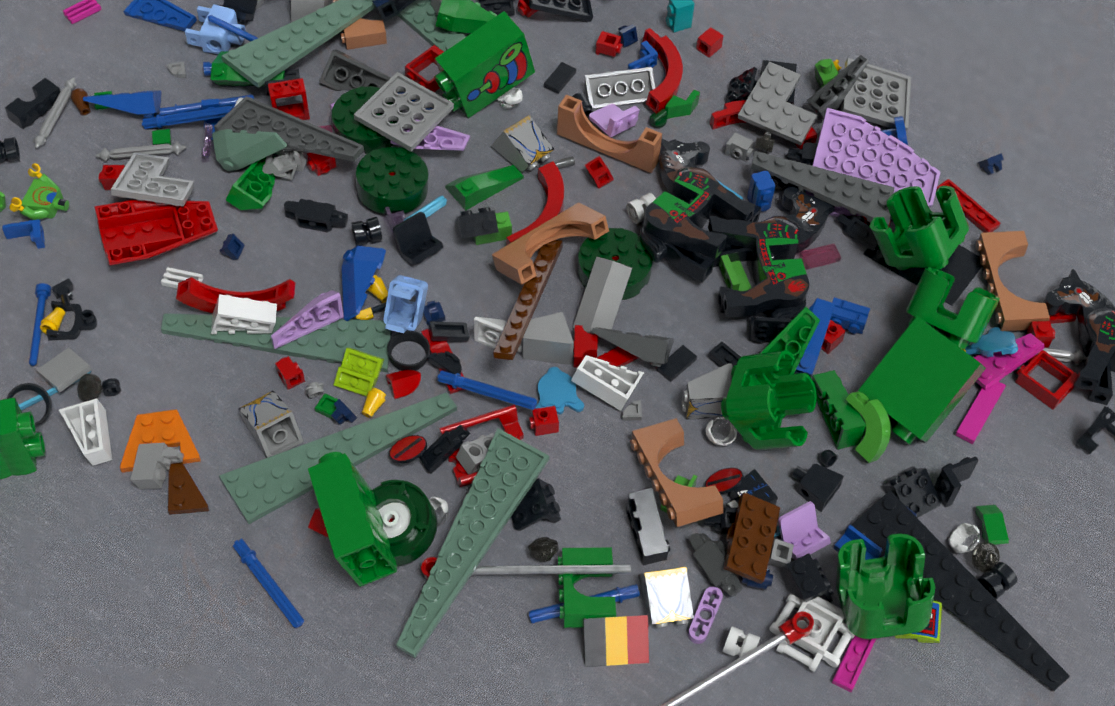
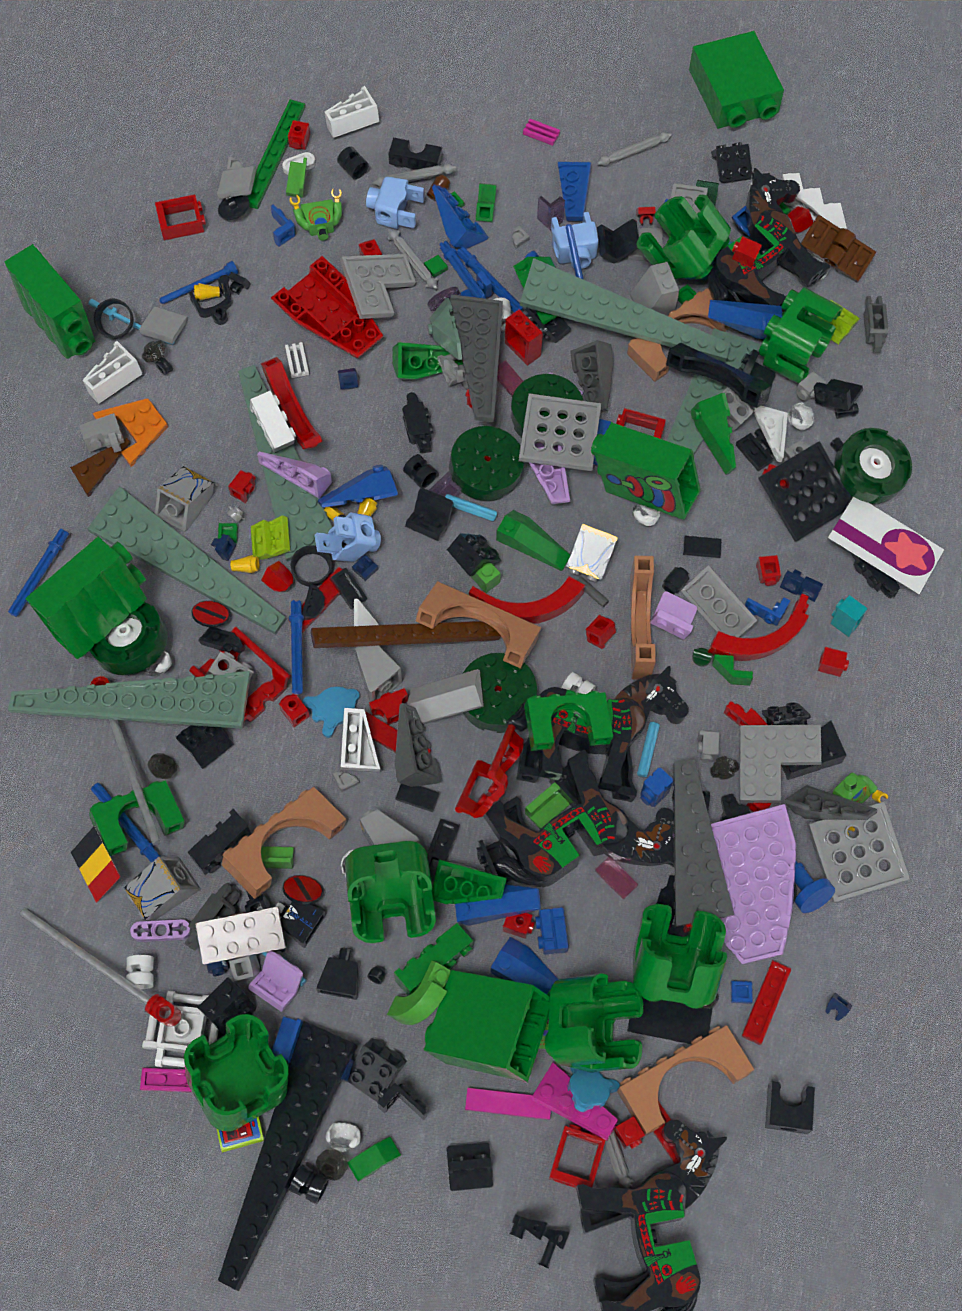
camera: 65 degrees right, 10 degrees up
(74, 138) = (391, 202): none -> light blue piece
(122, 76) = (486, 202): none -> green slope
(174, 34) = (547, 211): none -> clear purple panel
(641, 25) = (810, 588): none -> dark blue tile
(683, 190) = (589, 706): none -> green arch
(687, 287) = (496, 771): none -> red piece
(866, 353) = (520, 964): none -> blue wedge
(1024, 457) = (469, 1166): none -> black bracket
(1066, 226) = (789, 1118): none -> black piece

